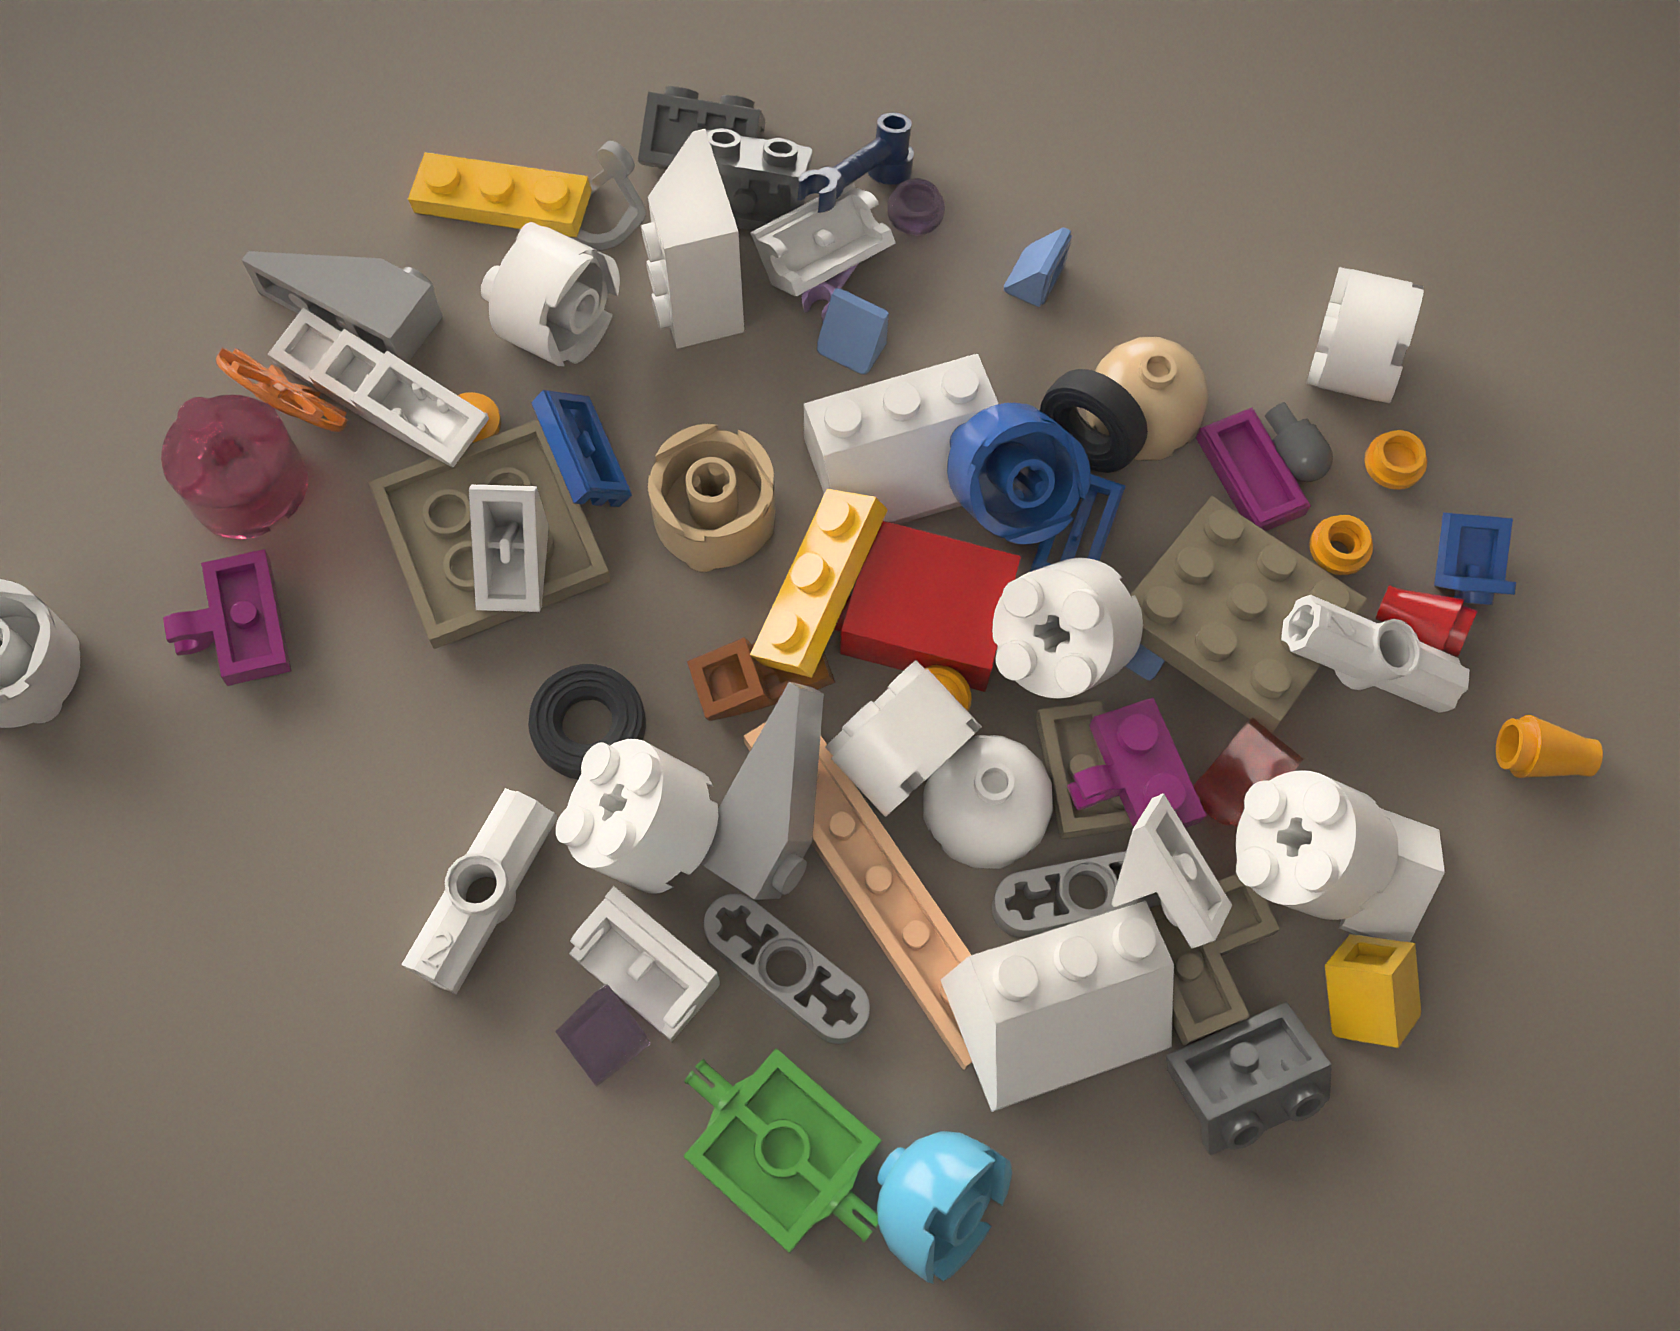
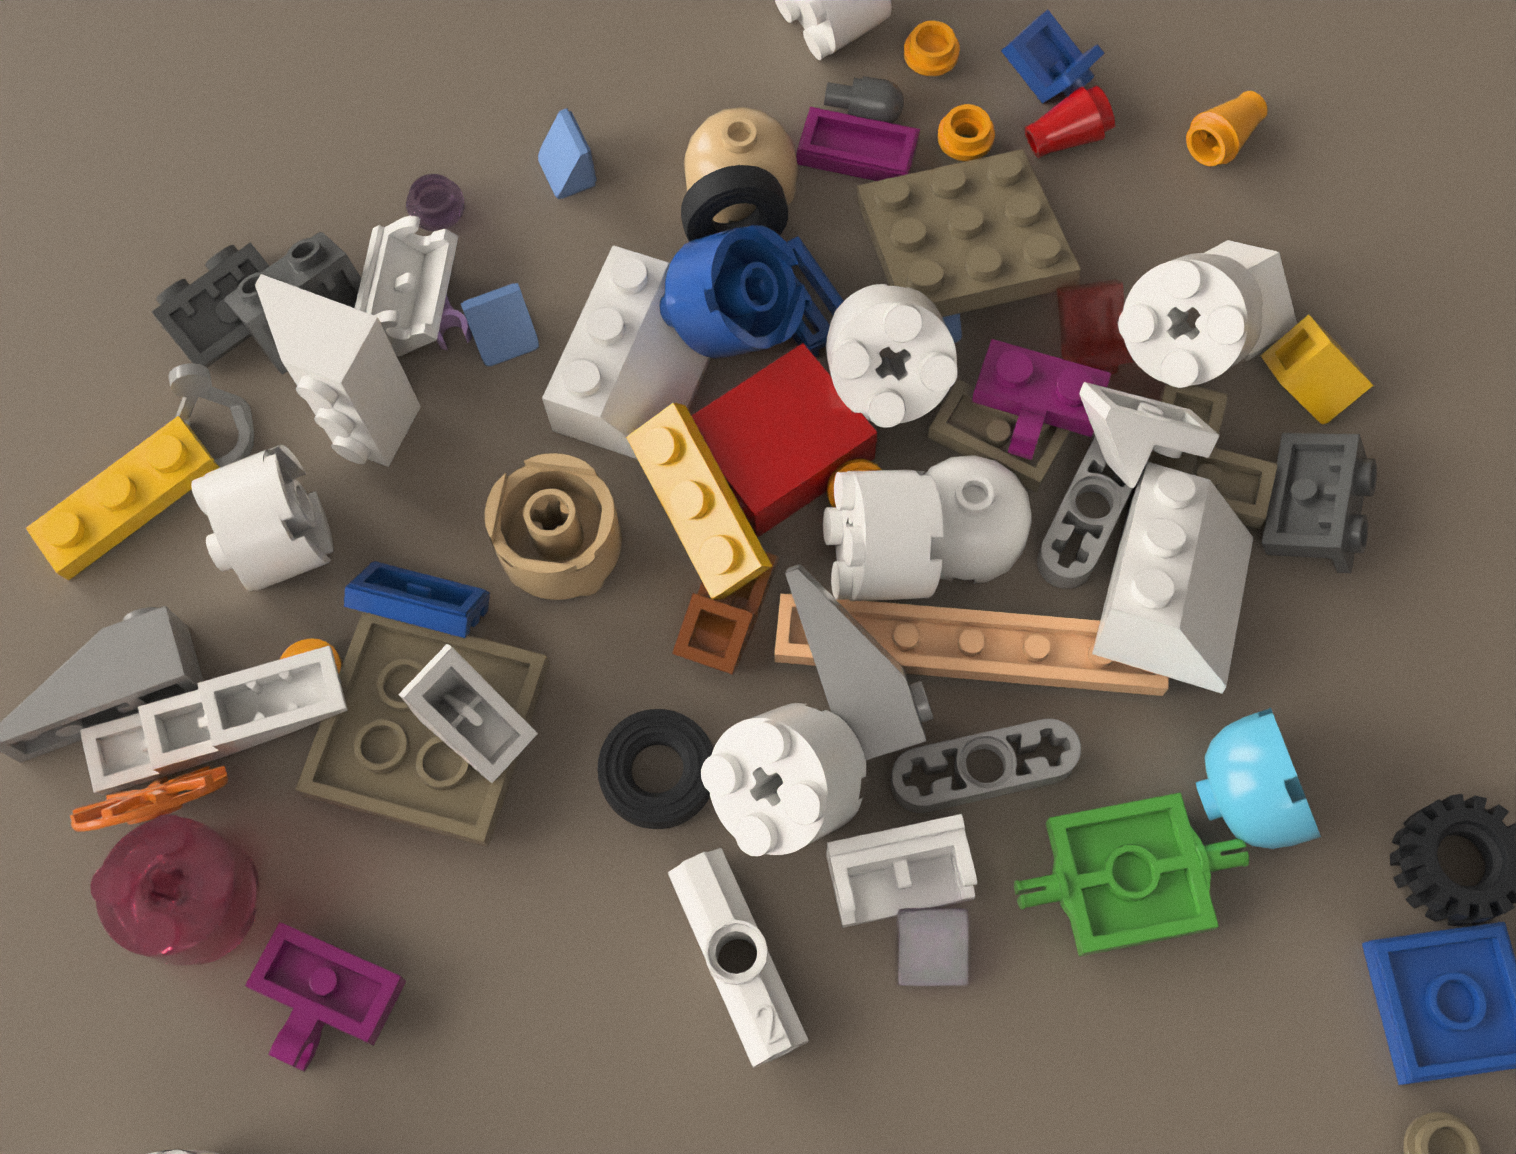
camera: 45 degrees left, 0 degrees up
(884, 159) = (376, 194): dark blue brick -> none
(1375, 654) = (1078, 171): white piece -> none

